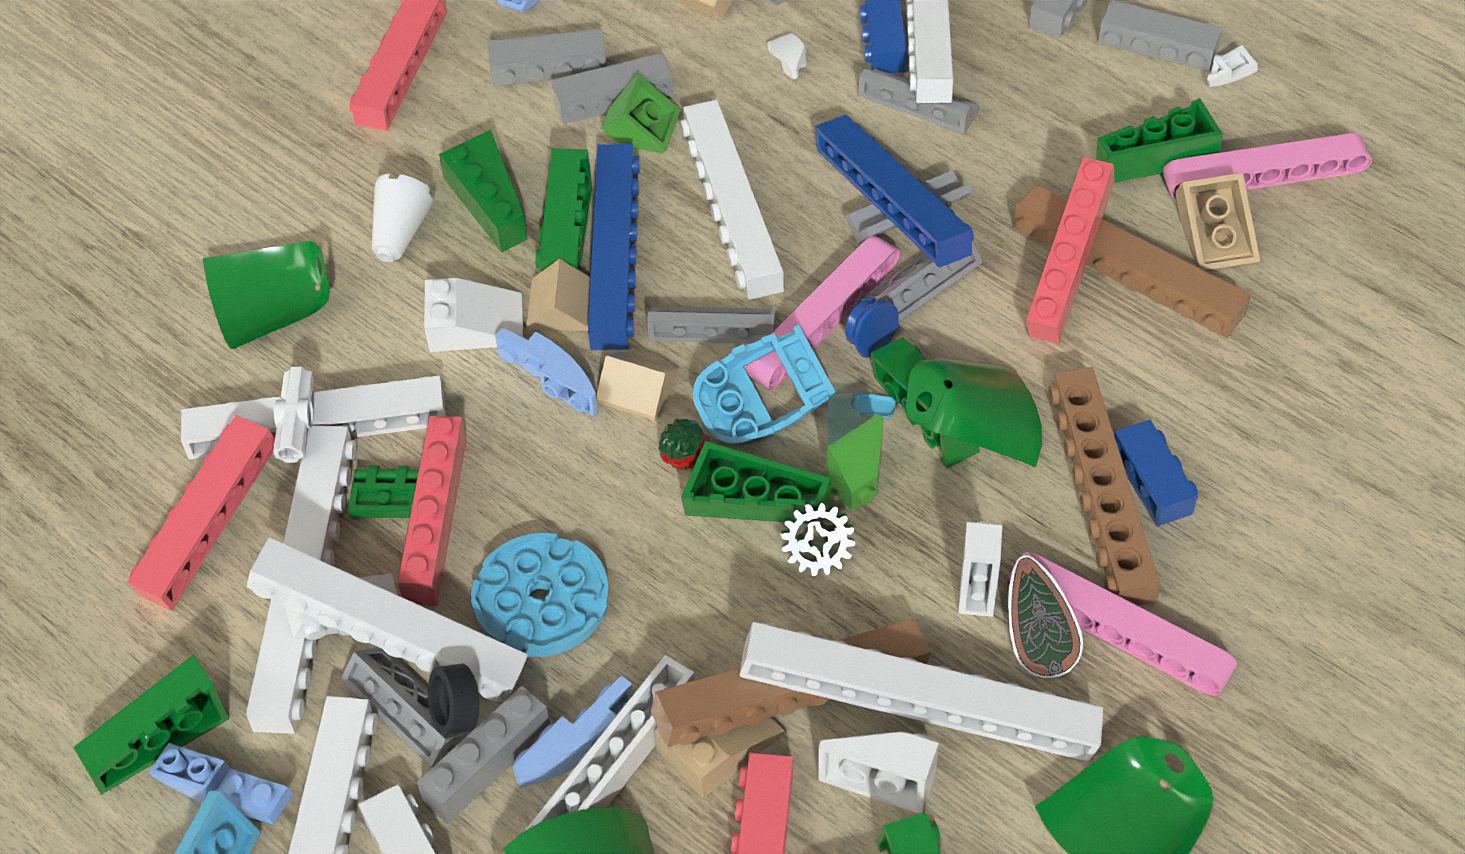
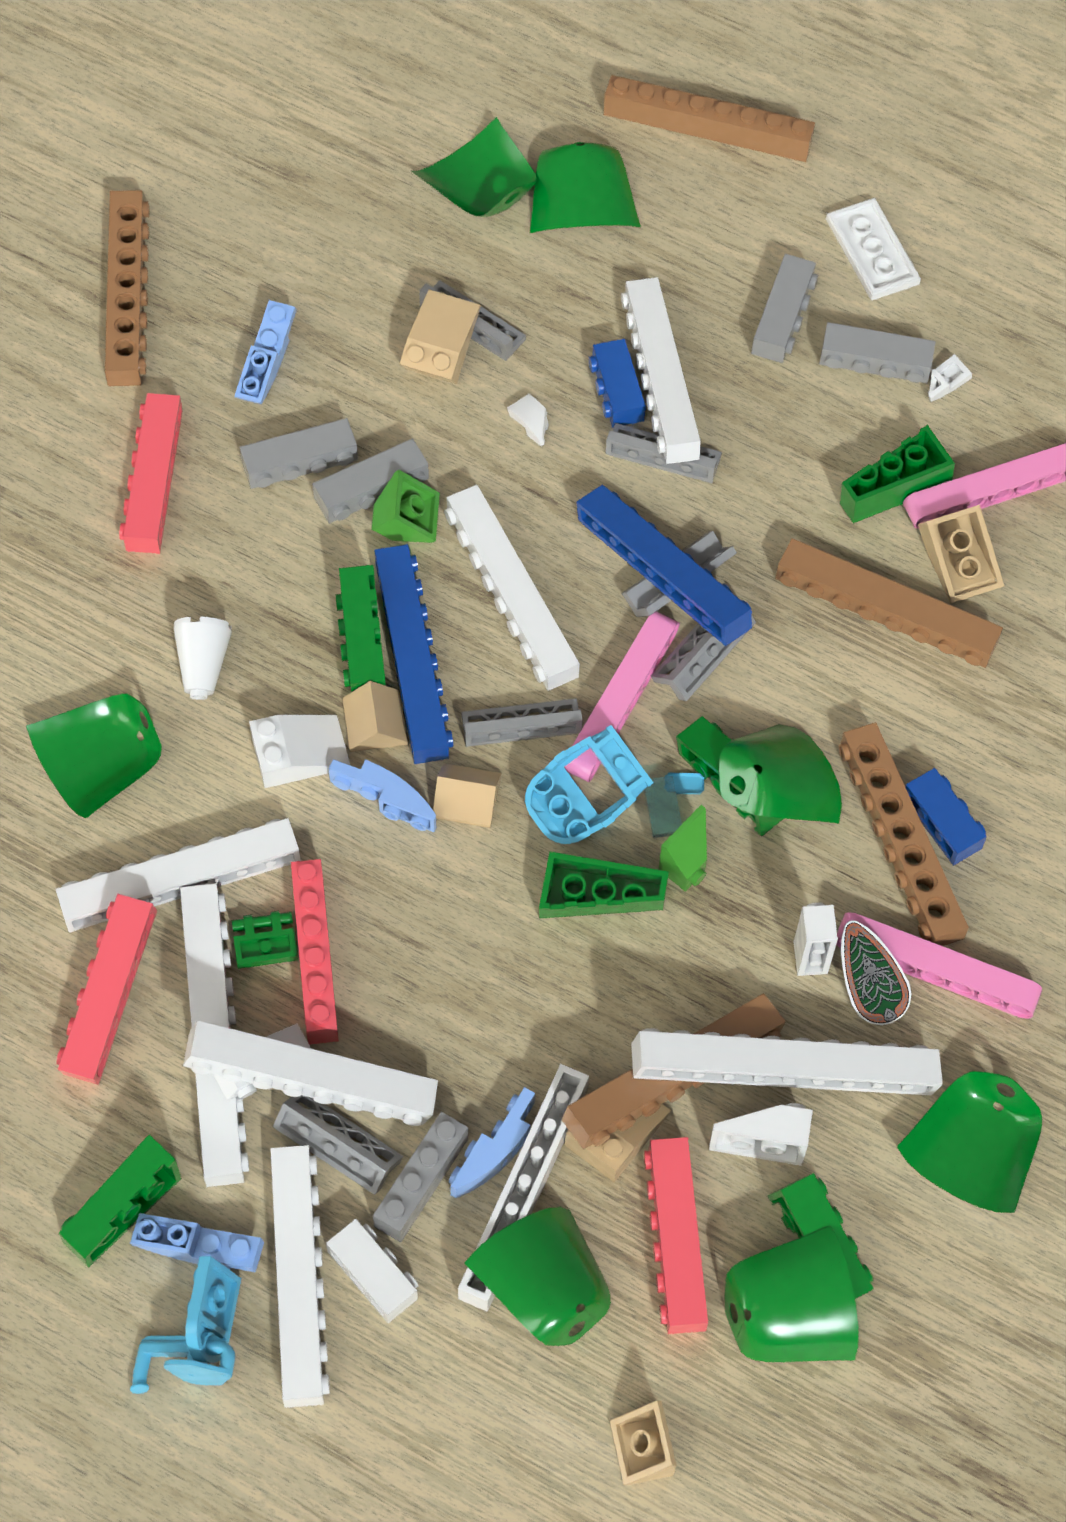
camera: 15 degrees left, 10 degrees up
(293, 414) = (166, 881): white piece -> none
(453, 699) = (388, 1136): black tyre -> none
(484, 187) = (275, 608): green wedge -> none
(535, 562) = (424, 1047): medium azure plate -> none
(682, 443) = (526, 853): dark green piece -> none
(804, 542) = (680, 925): gear -> none
(871, 325) = (670, 707): blue hat -> none
(1070, 250) = (838, 606): coral brick -> none

